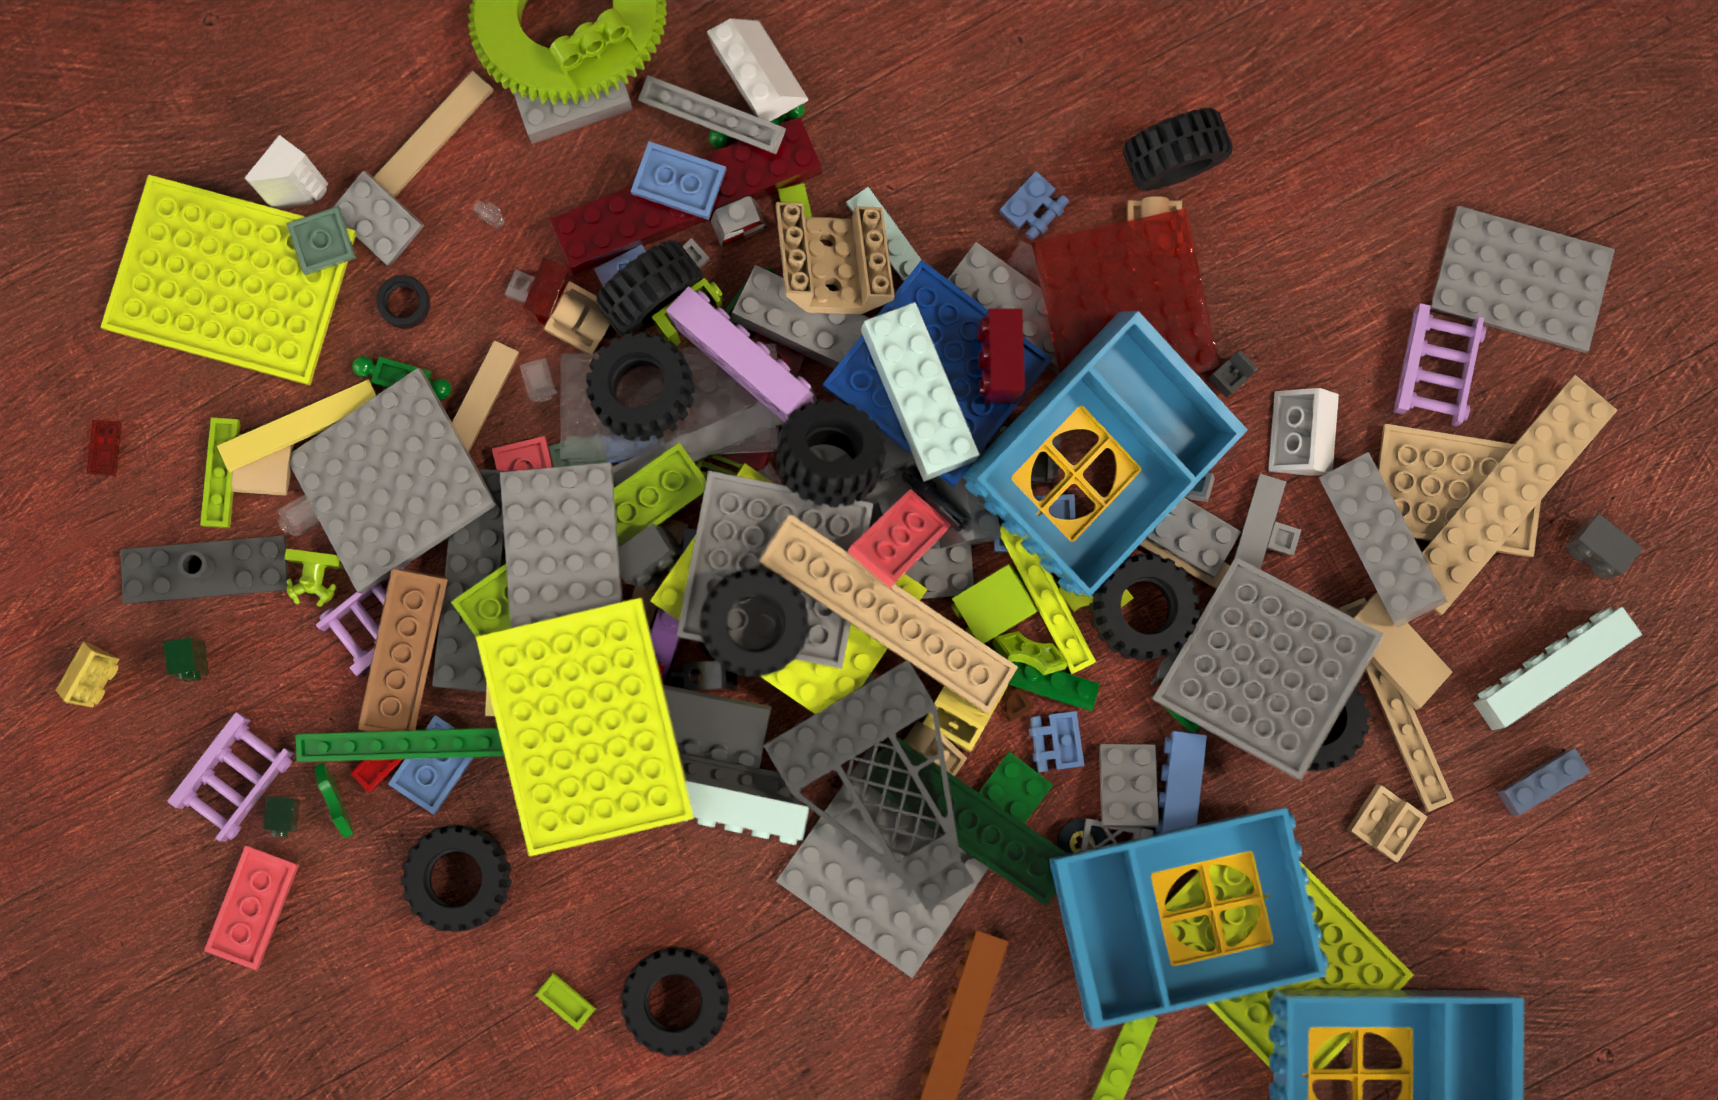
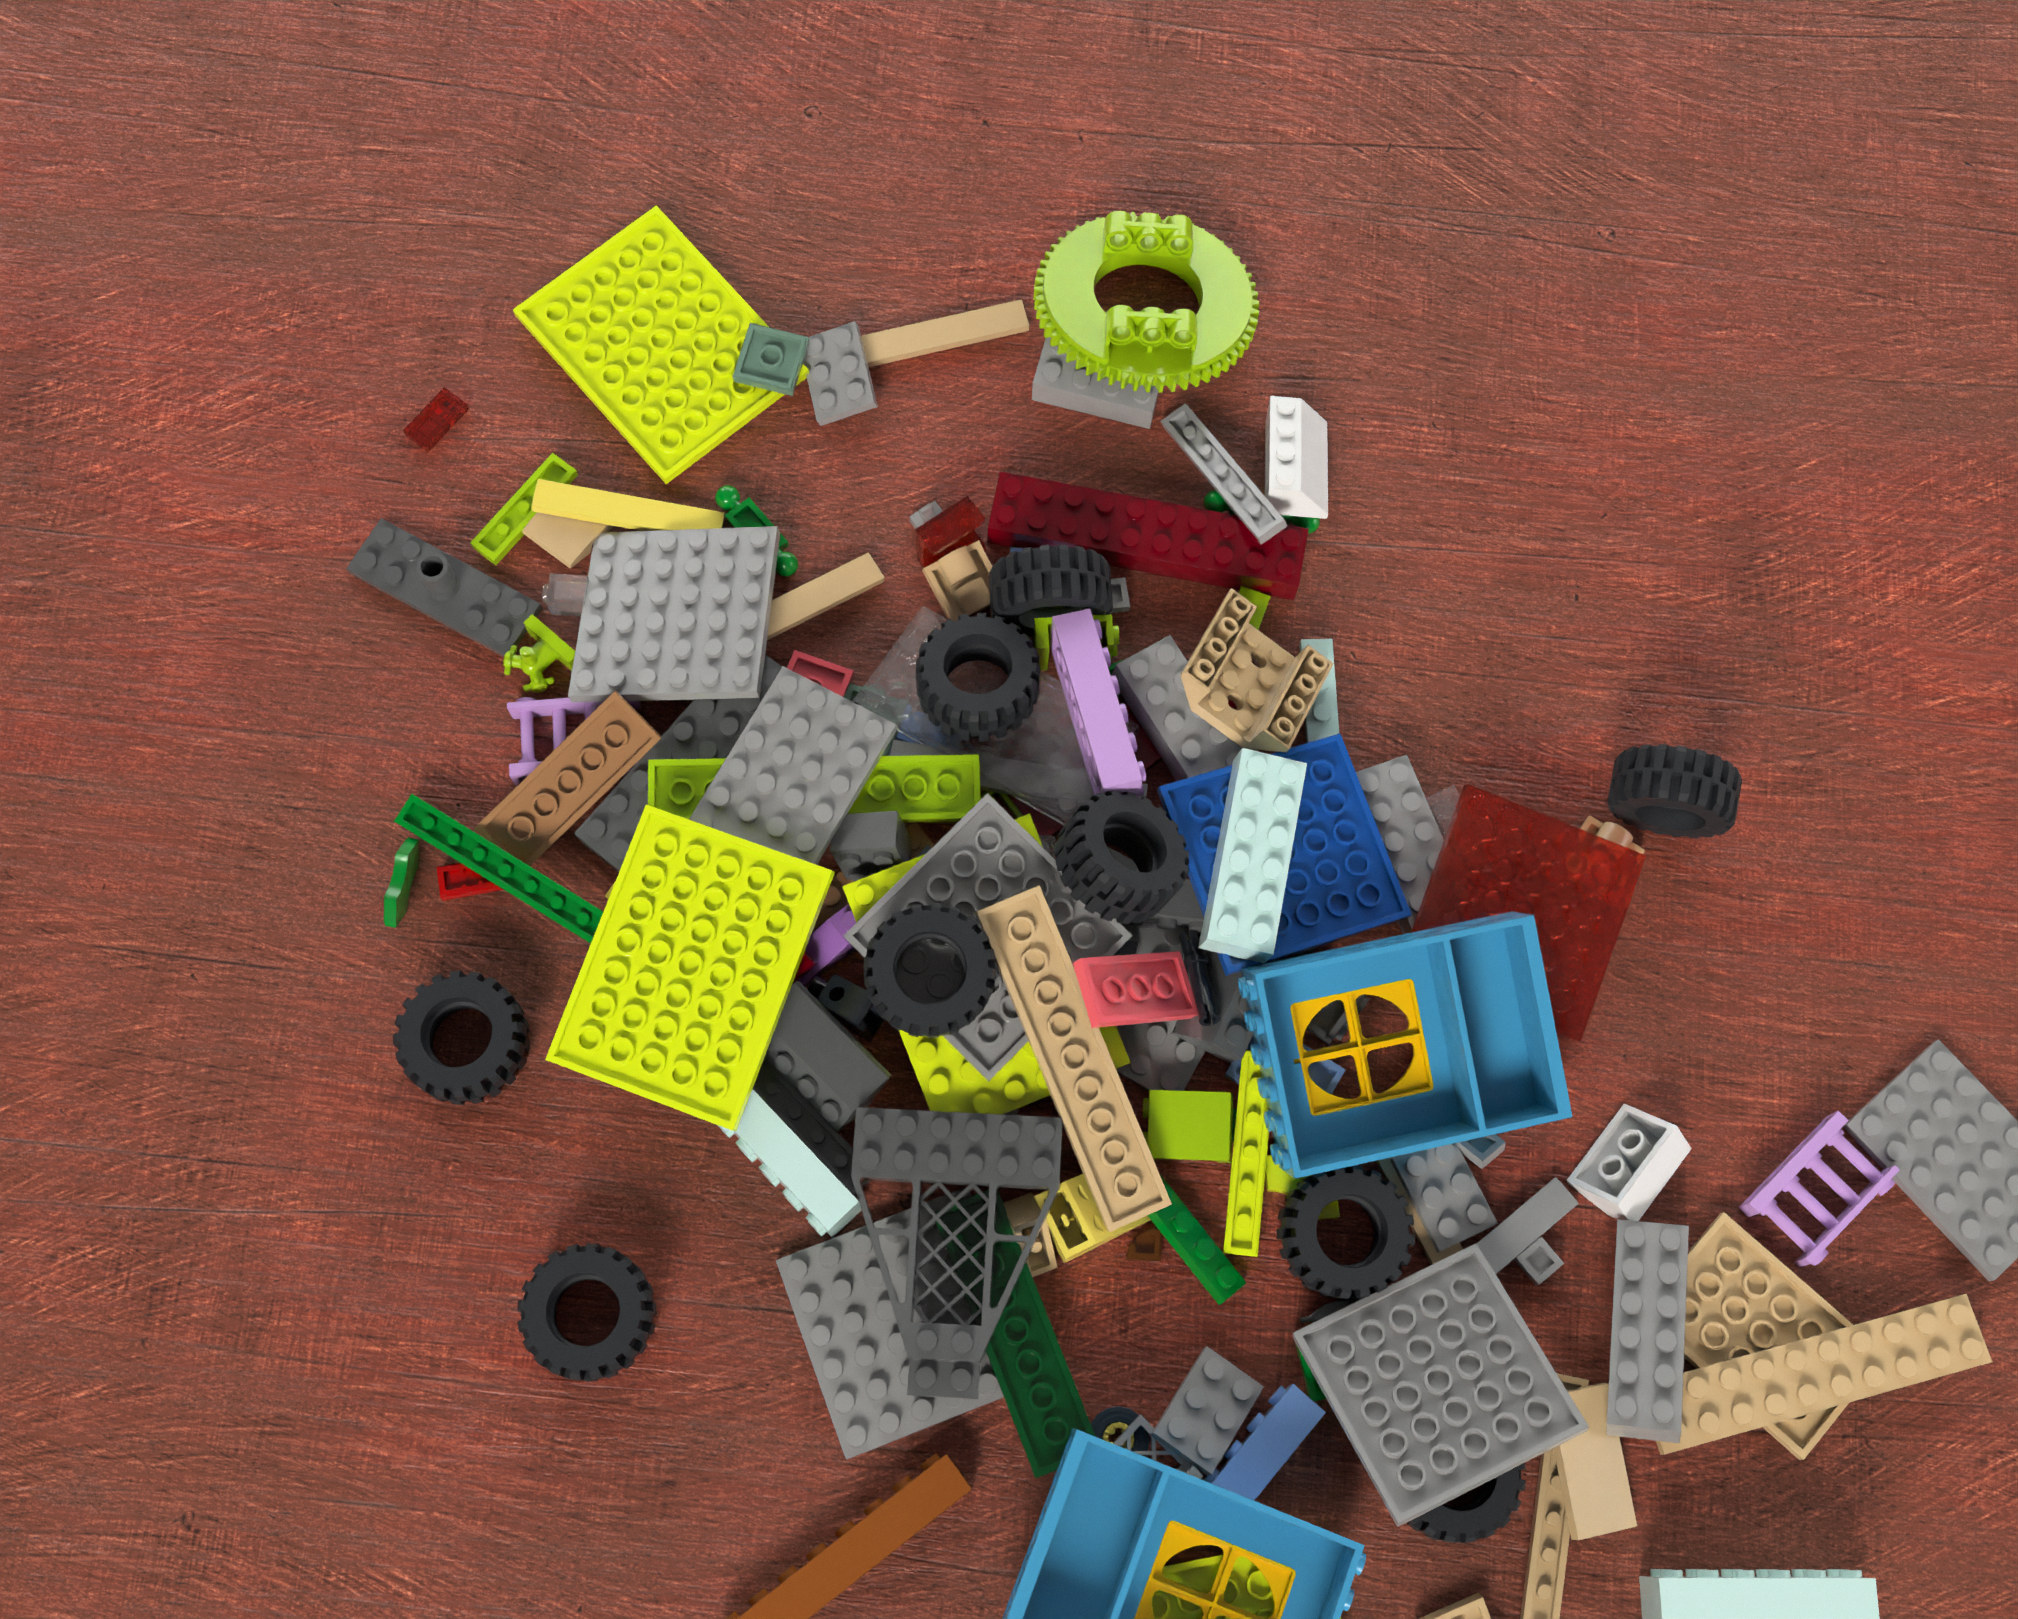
camera: 30 degrees right, 10 degrees down
(87, 676) = (262, 612): light yellow slope -> none
(186, 659) = (363, 654): dark green brick -> none
(203, 774) = (300, 773): lavender fence -> none
(251, 907) = (248, 934): coral plate -> none
(281, 815) = (342, 863): clear green brick -> none
(286, 177) = (777, 275): white slope -> none
(403, 281) = (802, 442): black tyre -> none
(430, 779) = (510, 925): medium blue plate -> none
(489, 213) = (945, 434): clear plate -> none
(538, 380) = (884, 615): clear brick -> none
(565, 1001) = (480, 1238): lime tile -> none
(678, 180) = (1148, 510): medium blue plate -> none
(738, 220) = (1182, 588): light grey torso -> none
(1001, 356) = (1360, 873): dark red brick -> none
(1016, 788) = (1088, 1333): green plate -> none
(1027, 200) = (1485, 753): medium blue plate -> none
(1039, 655) = (1204, 1213): lime tile -> none
(1065, 741) = (1172, 1317): medium blue plate -> none
(1233, 373) = (1591, 1056): dark grey bracket -> none
(1602, 547) = (1888, 1500): dark grey brick -> none

